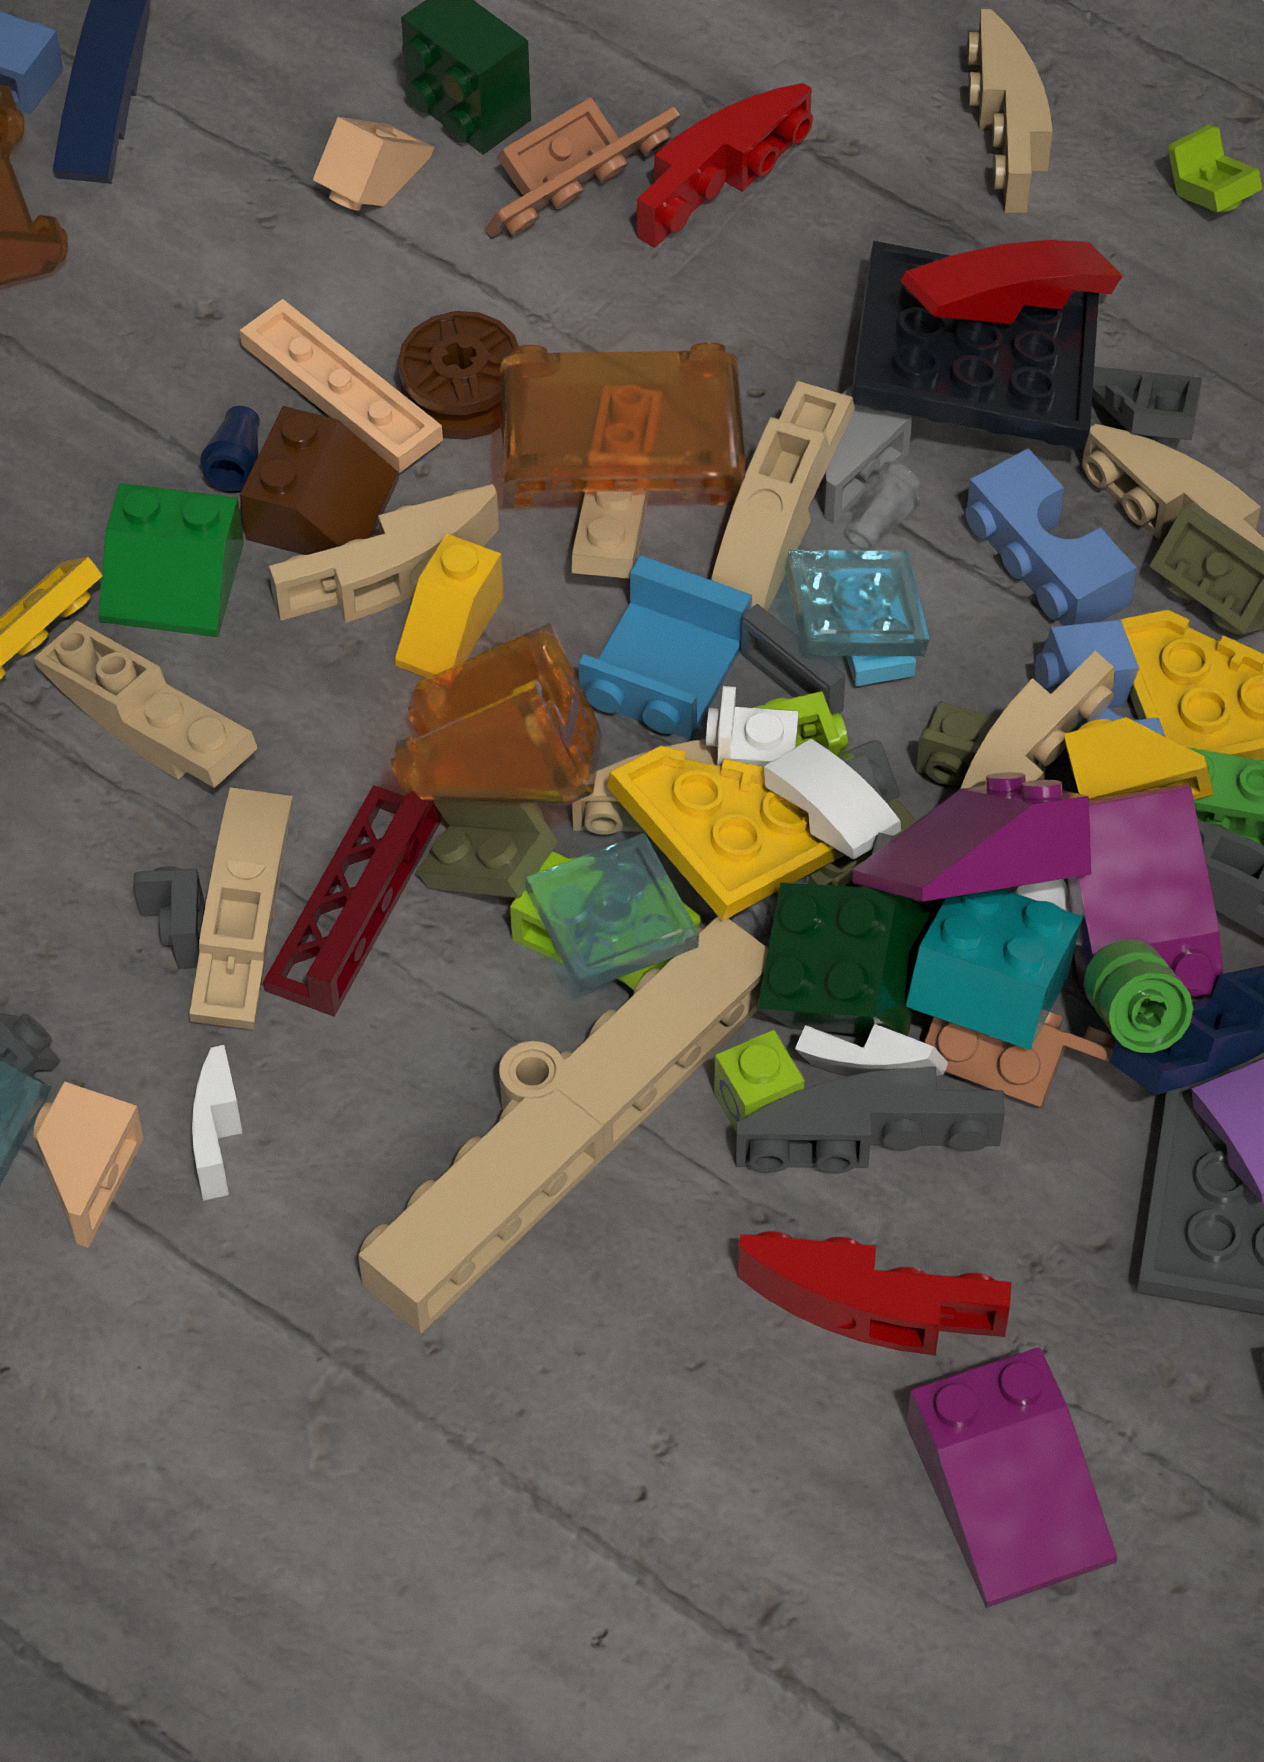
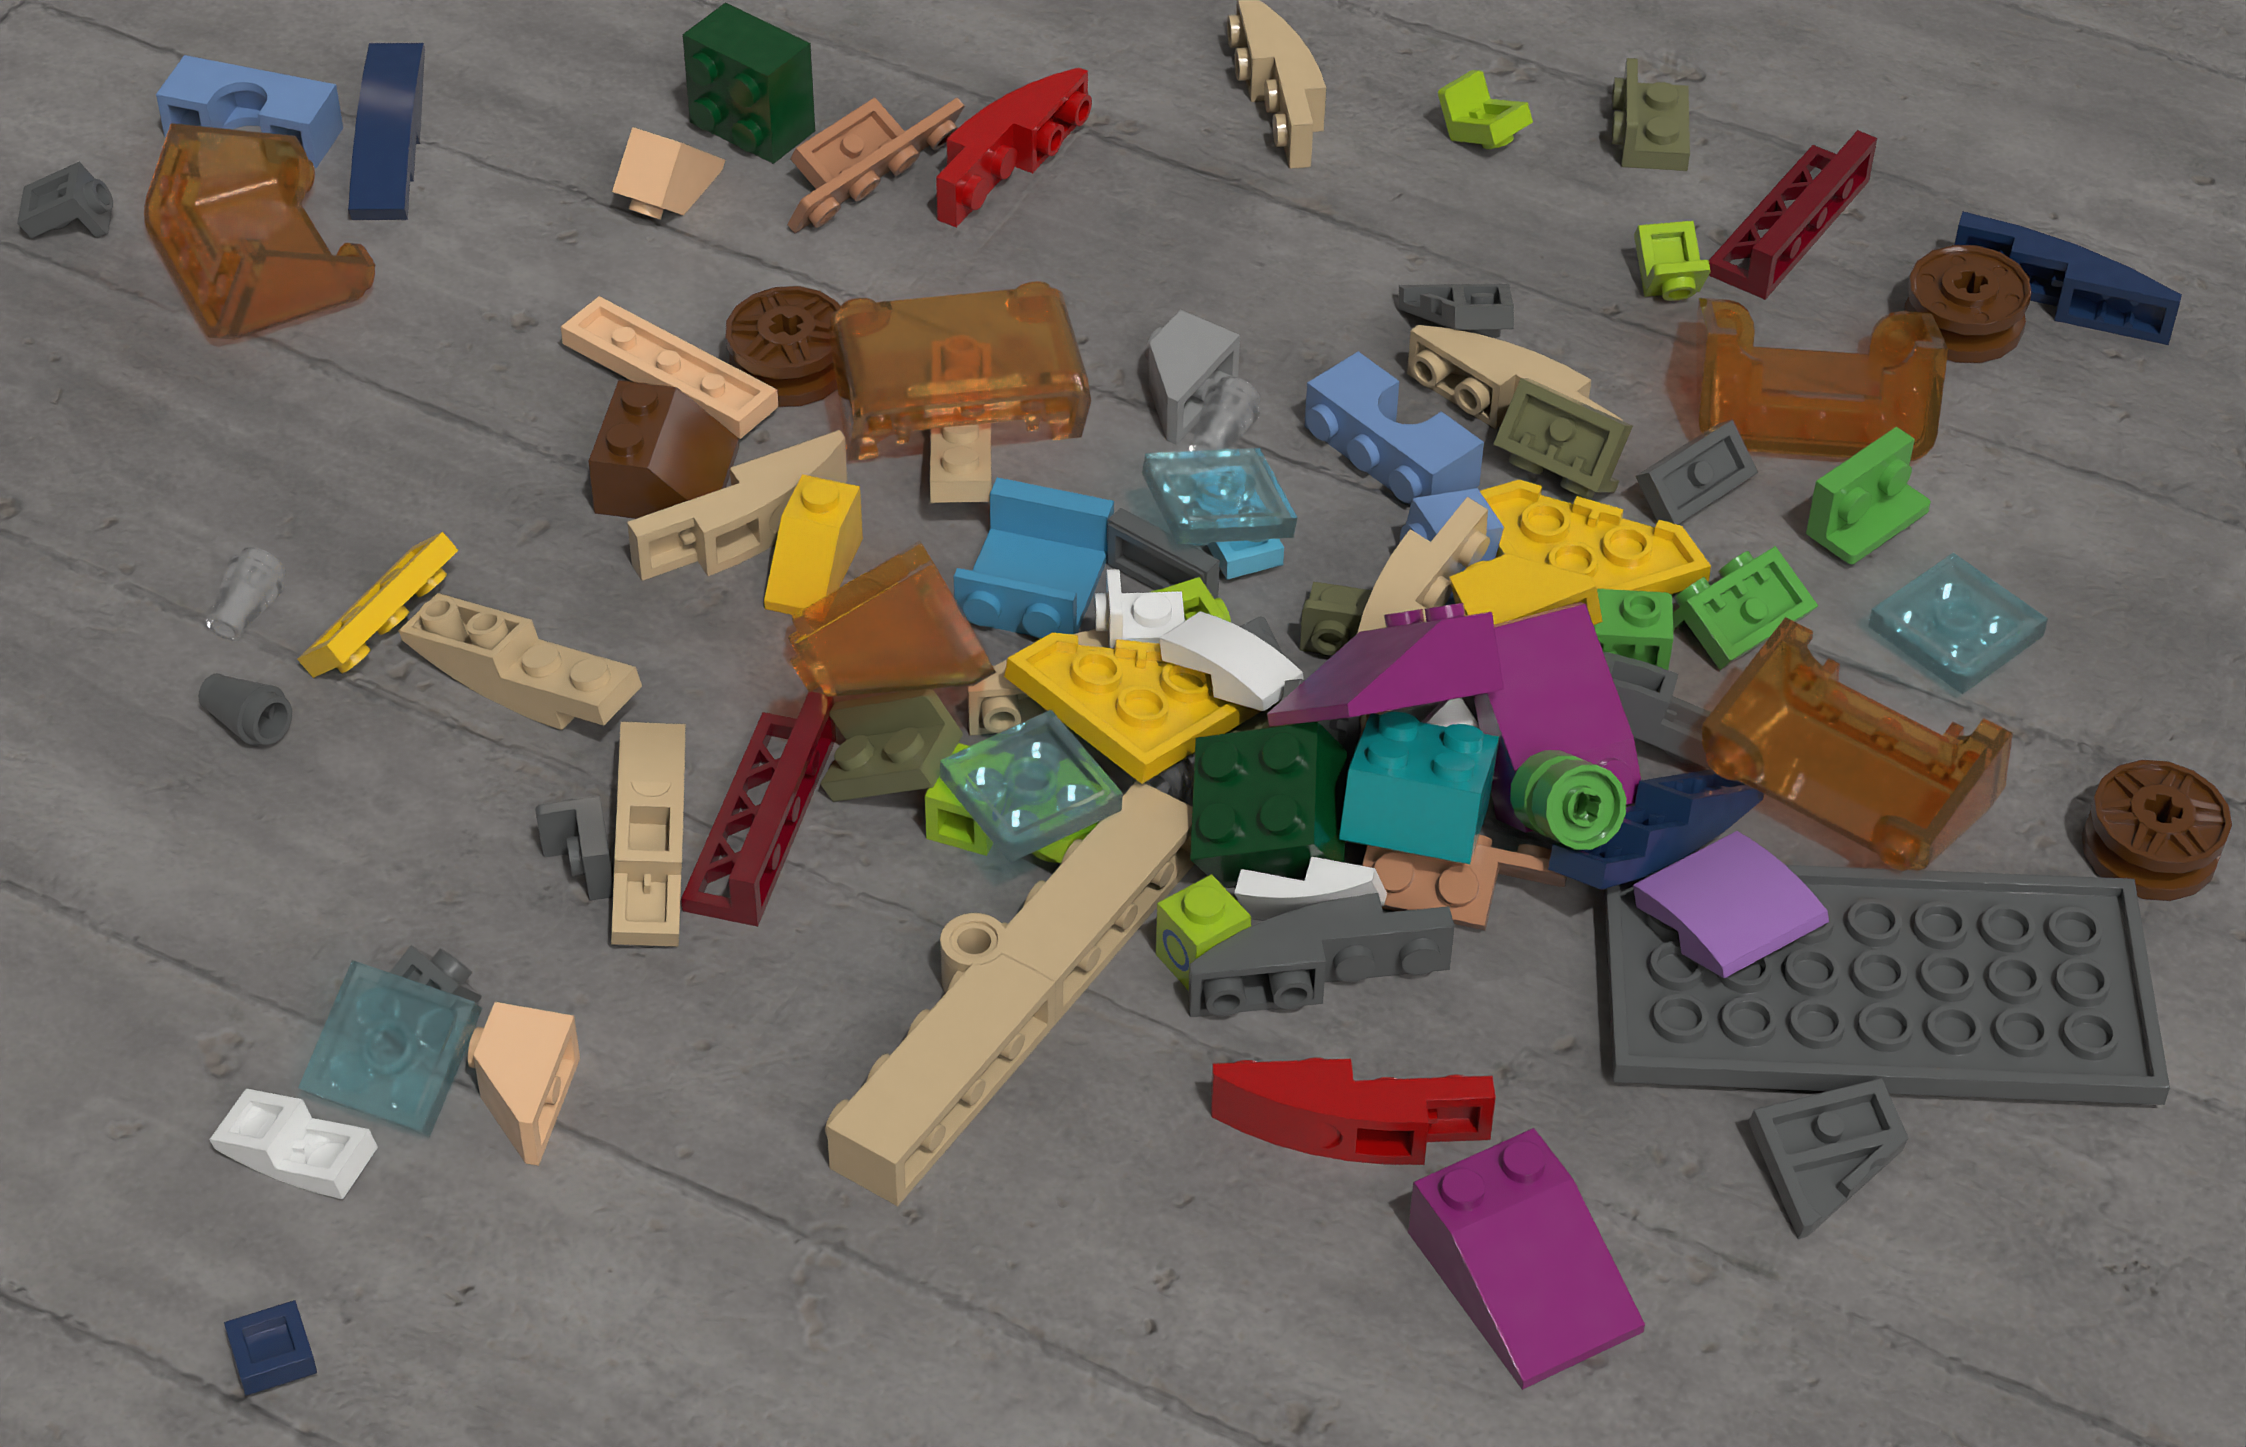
camera: 10 degrees left, 10 degrees down
(170, 559) = (523, 531): green slope -> none
(213, 1118) = (655, 1030): white slope -> none
(232, 450) = (570, 433): dark blue cone -> none
(778, 489) = (1125, 405): tan slope -> none
(977, 374) = (1290, 271): black plate -> none
(1003, 278) = (1308, 206): red slope -> none

